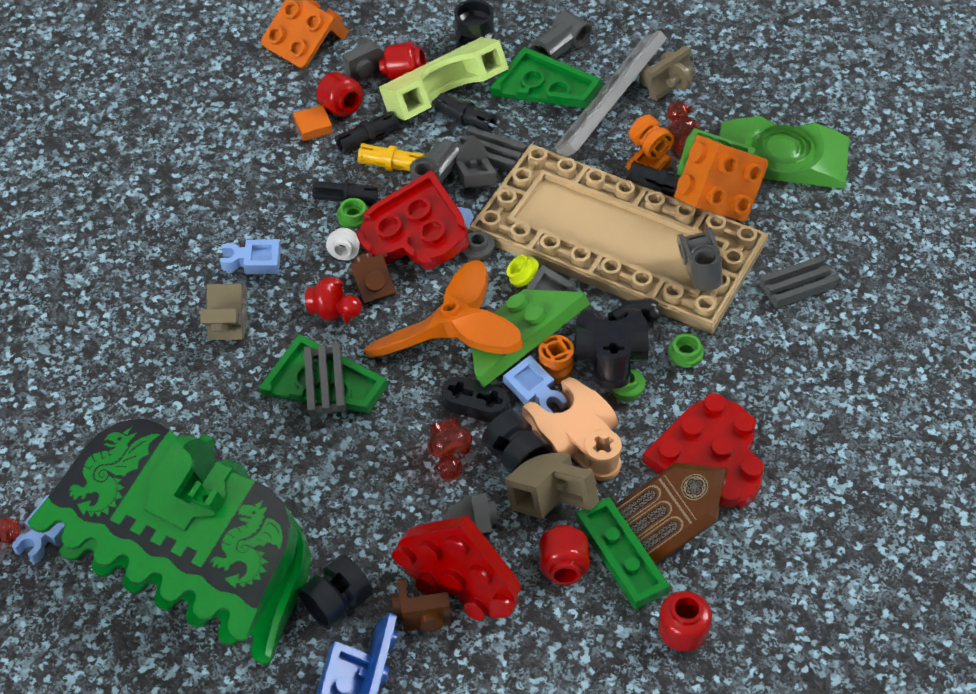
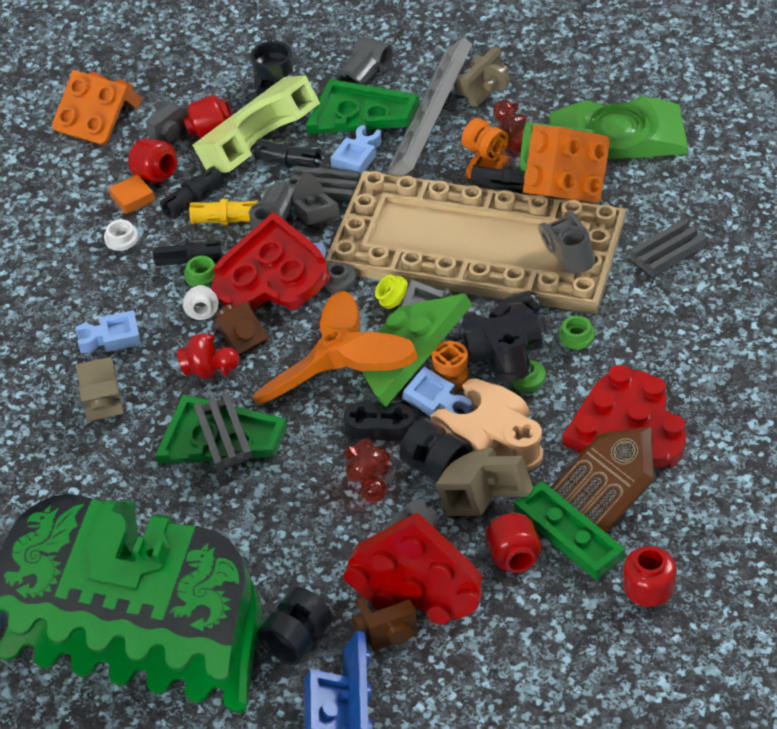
camera: 10 degrees left, 5 degrees down
(290, 162) = (120, 235): none -> white plate
(530, 126) = (357, 153): none -> light blue plate

